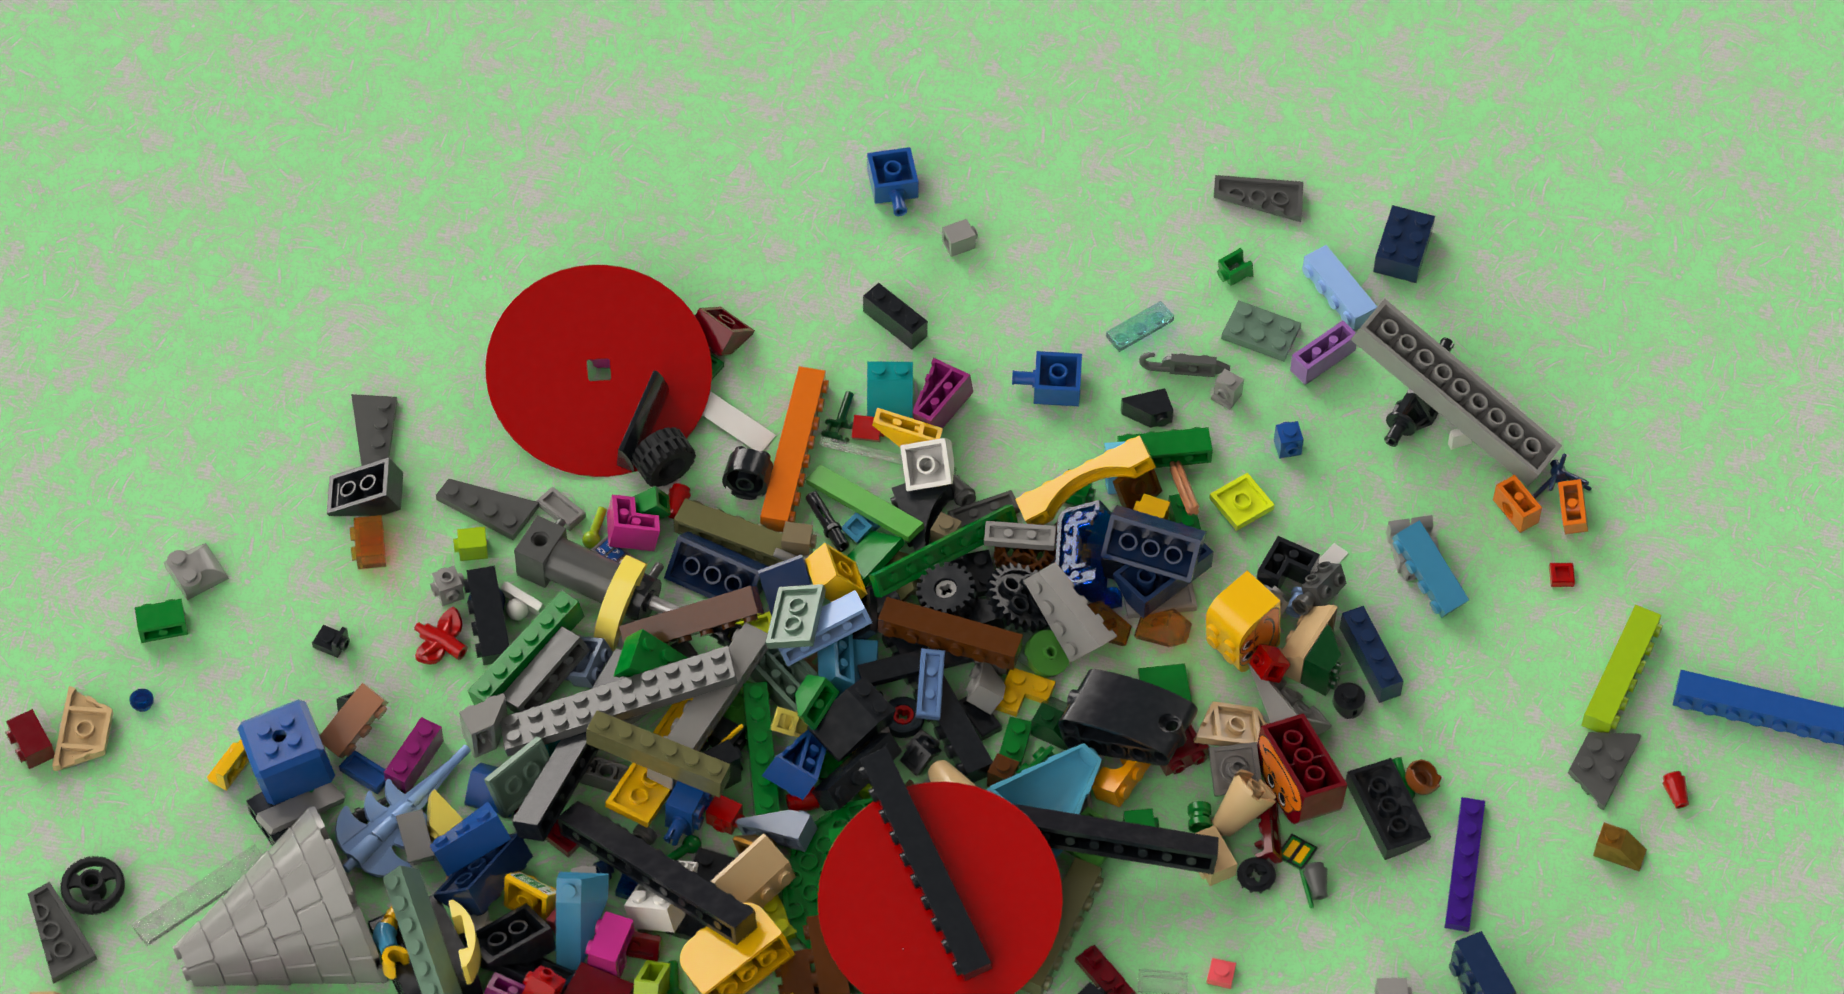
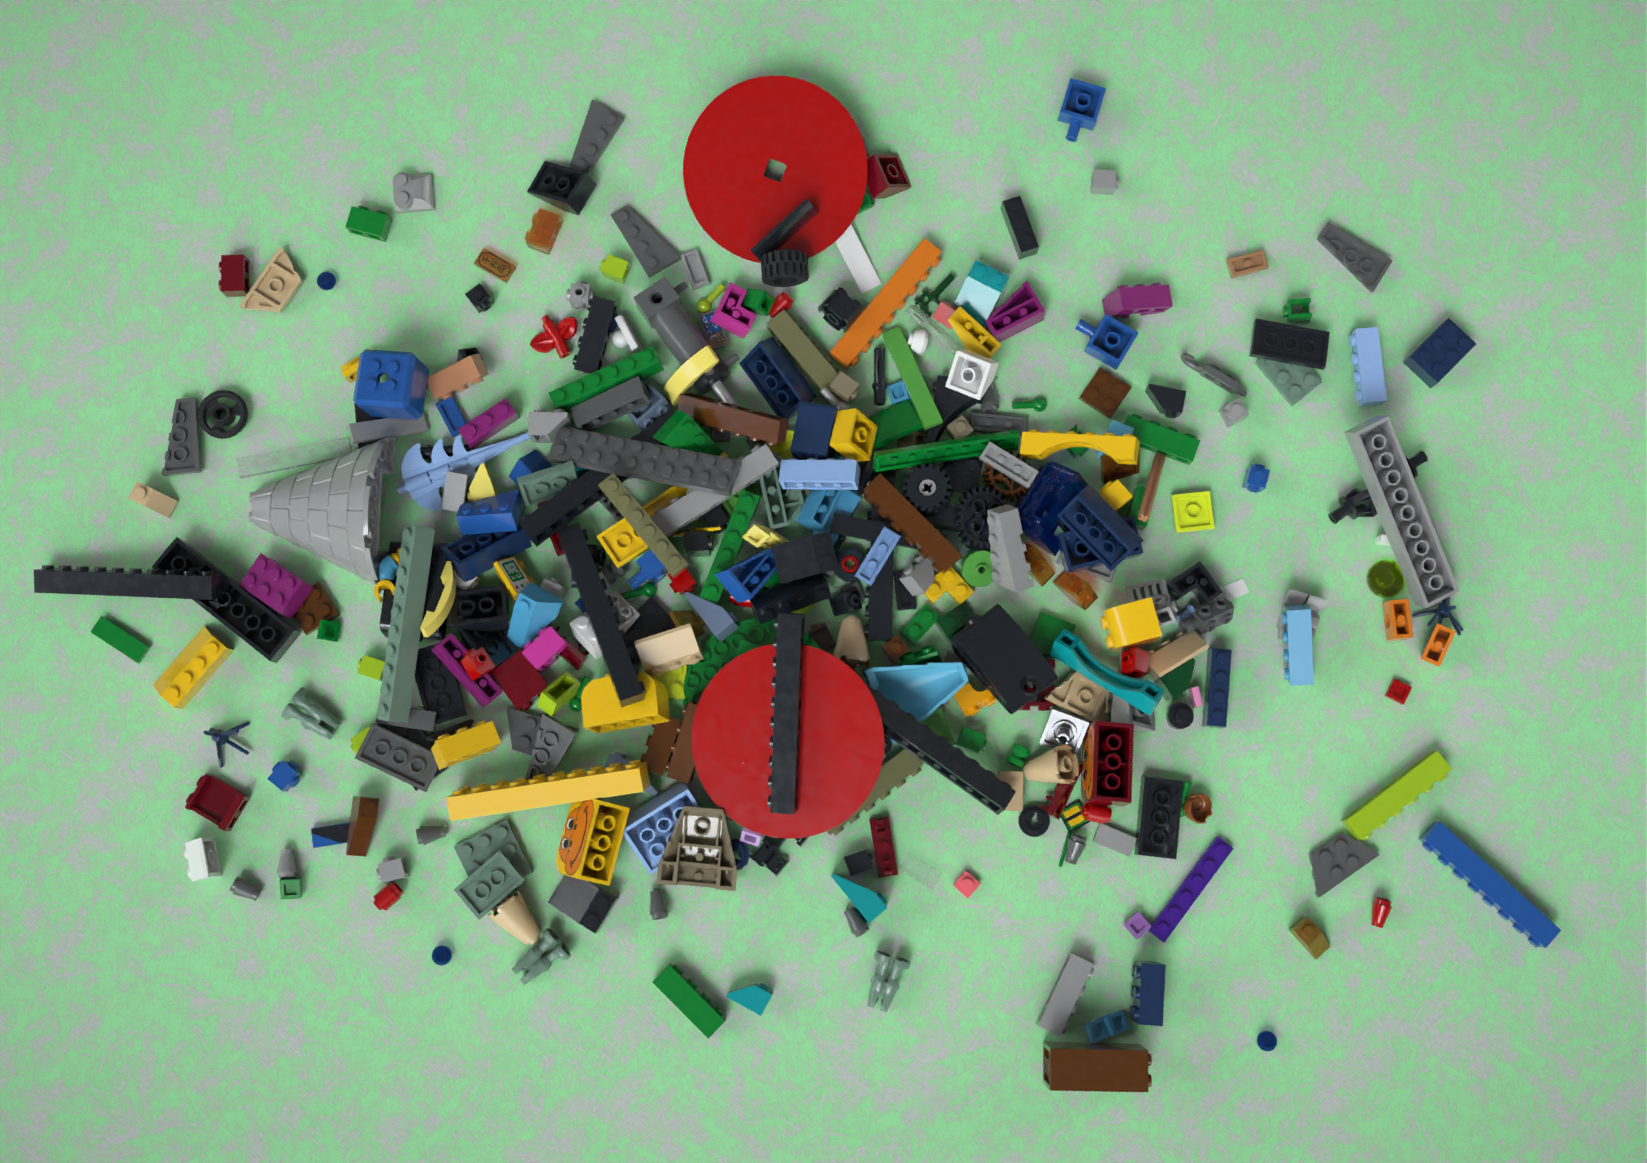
camera: 30 degrees right, 25 degrees up
(330, 601) = (495, 265): none -> clear orange tile
(795, 616) = (803, 459): sand green plate -> none
(814, 699) = (782, 532): green slope -> none
(851, 467) = (918, 341): none -> white cone
(1015, 474) = (1038, 404): none -> green bar
(1062, 327) = (1138, 300): none -> magenta wedge
(1080, 432) = (1105, 393): none -> reddish brown plate
(1139, 326) = (1198, 325): clear light blue plate -> none
(1156, 249) = (1247, 264): none -> medium nougat plate
(1245, 299) = (1289, 344): none -> black plate
(1294, 682) = (1137, 692): none -> teal arch
(1318, 832) = (1096, 813): none -> red brick
(1323, 353) = (1324, 418): medium lavender brick -> none
(1353, 672) = (1195, 697): none -> bright pink tile
(1354, 853) = (1114, 839): none -> light grey tile
(1430, 924) = (1137, 925): none -> medium lavender plate
(1481, 475) = (1385, 579): none -> clear neon green tile
(1638, 972) = (1266, 1041): none -> clear blue plate

